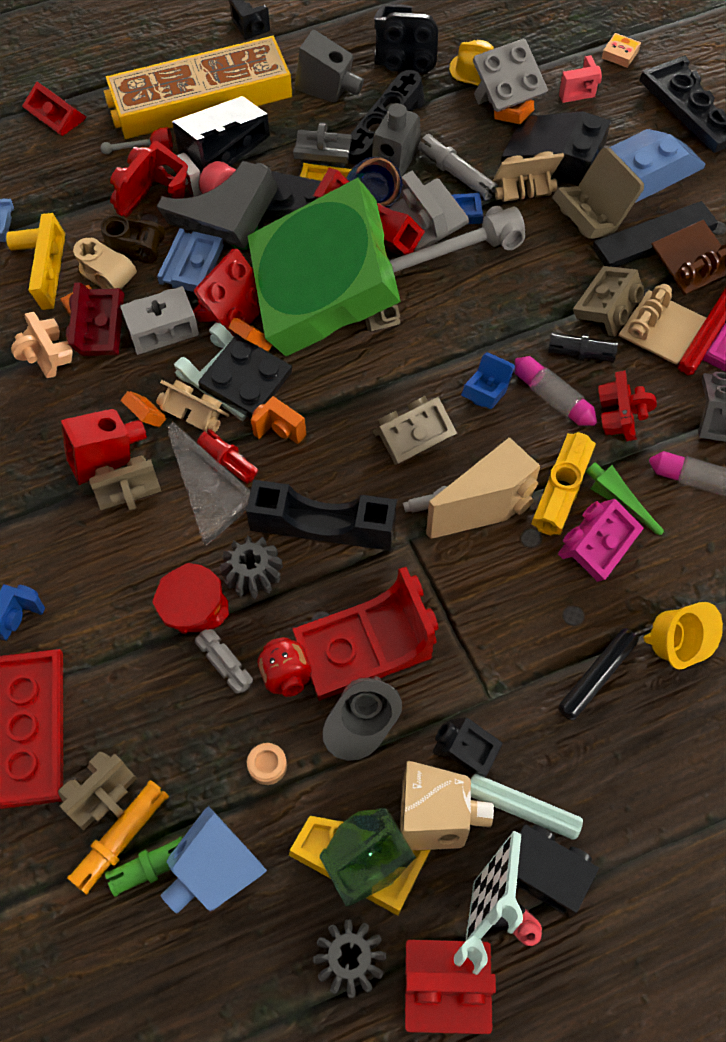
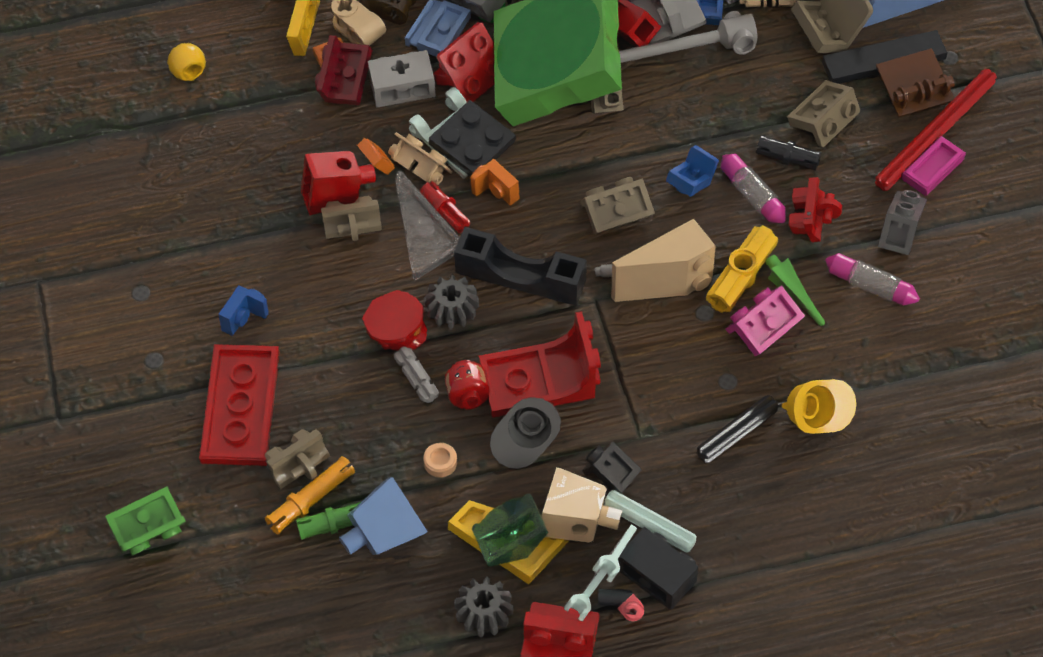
camera: 10 degrees right, 5 degrees down
(37, 345) = (287, 88): light nougat hips -> none
(250, 333) = (482, 101): orange tile -> none
(662, 325) = (868, 142): tan hinge -> none

